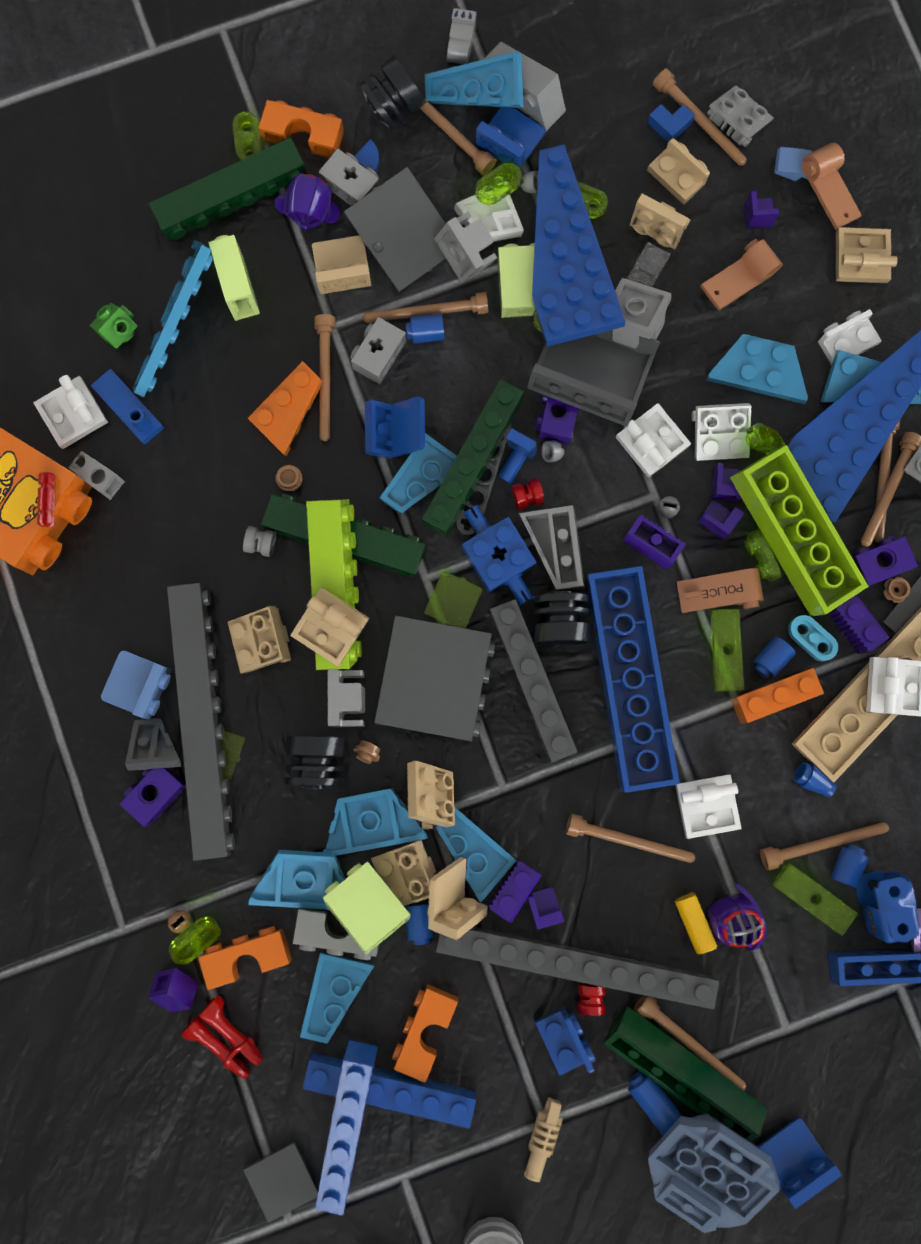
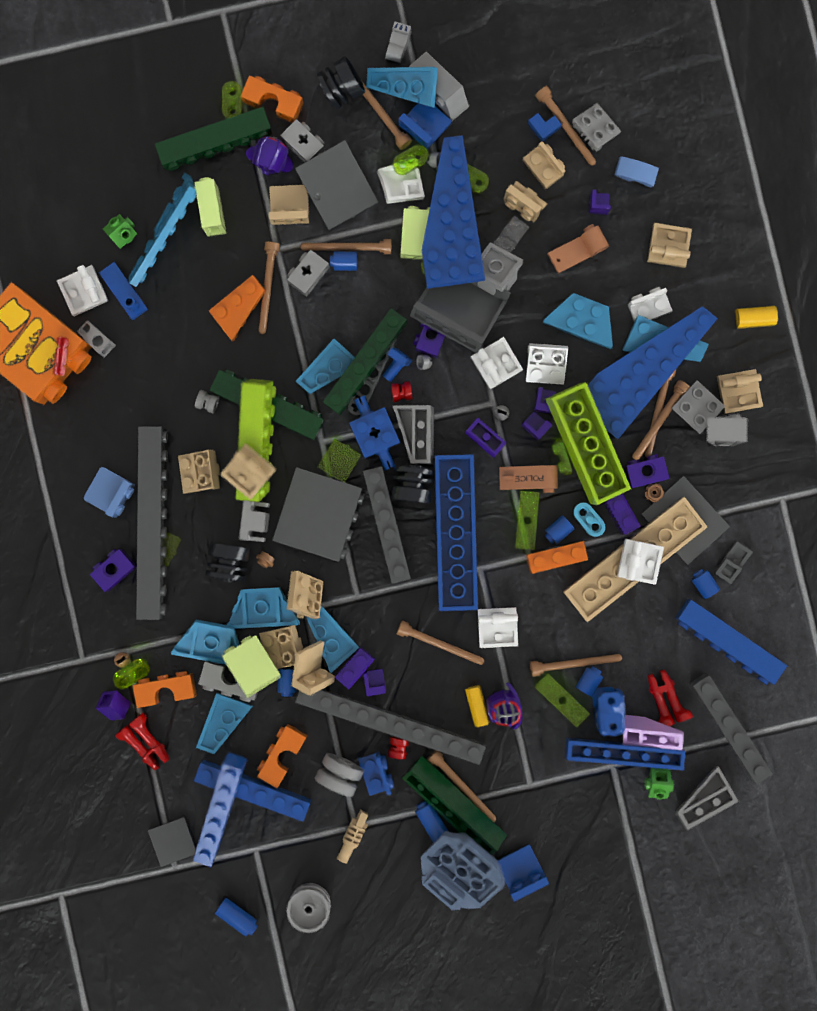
camera: 10 degrees right, 5 degrees up
(150, 746) = (115, 537): dark grey wing -> none
(289, 478) = (233, 358): medium nougat plate -> none
(368, 156) = (318, 126): blue tile -> none
(394, 428) = (312, 331): blue bracket -> none
(463, 245) = (379, 205): light grey panel -> none
(513, 1051) = (339, 774): none -> light grey wheel
(763, 438) = (575, 373): clear neon green plate -> none
(813, 779) = (573, 618): blue cone -> none
(822, 172) = (652, 190): nougat door -> none

